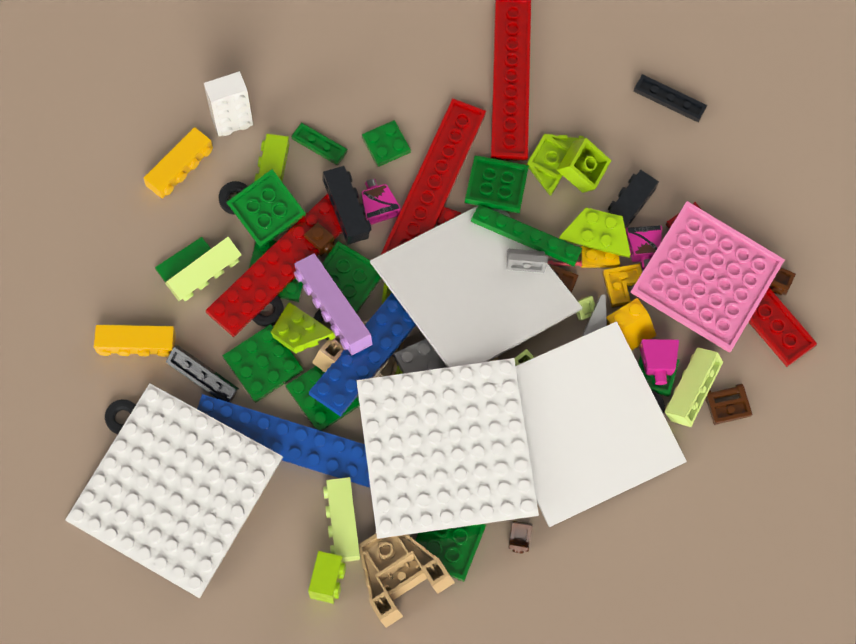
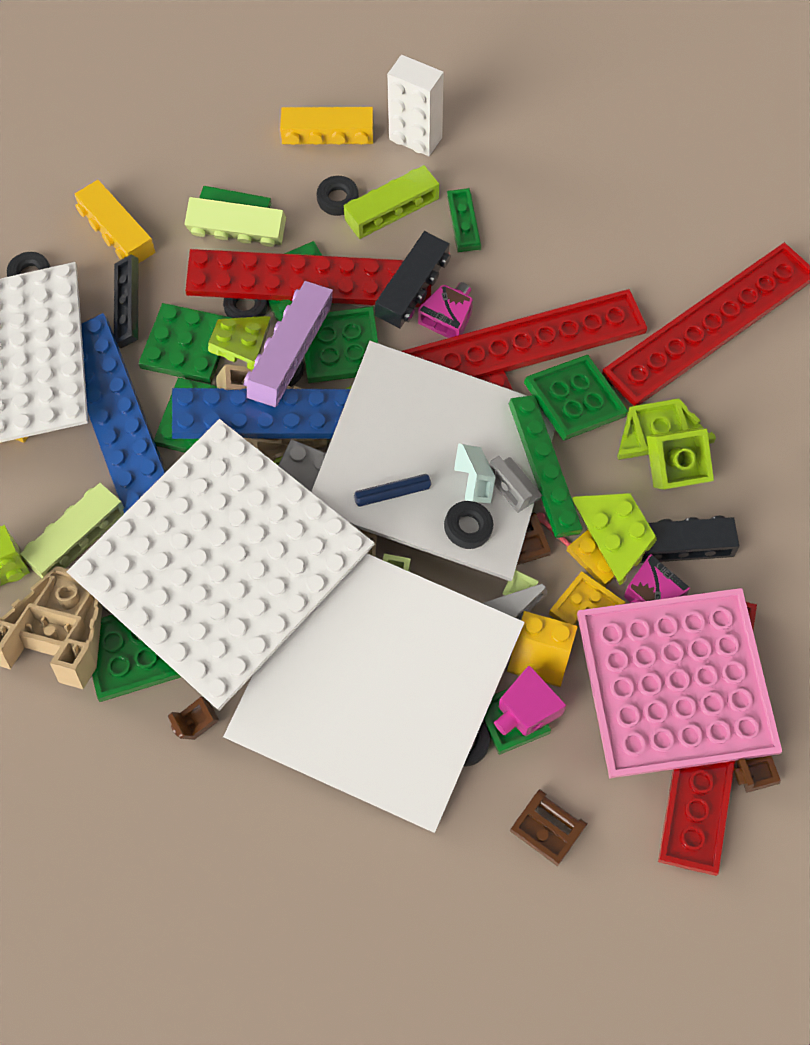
camera: 55 degrees right, 5 degrees down
(266, 208) = (342, 218): green plate -> none
(320, 238) = (356, 288): reddish brown bracket -> none
(386, 143) = (522, 272): green plate -> none
(483, 323) = (392, 490): none -> dark blue axle
(501, 270) = (481, 477): none -> light aqua slope
(534, 313) = (462, 538): none -> black tyre
(693, 387) = (531, 770): yellowish green brick -> none

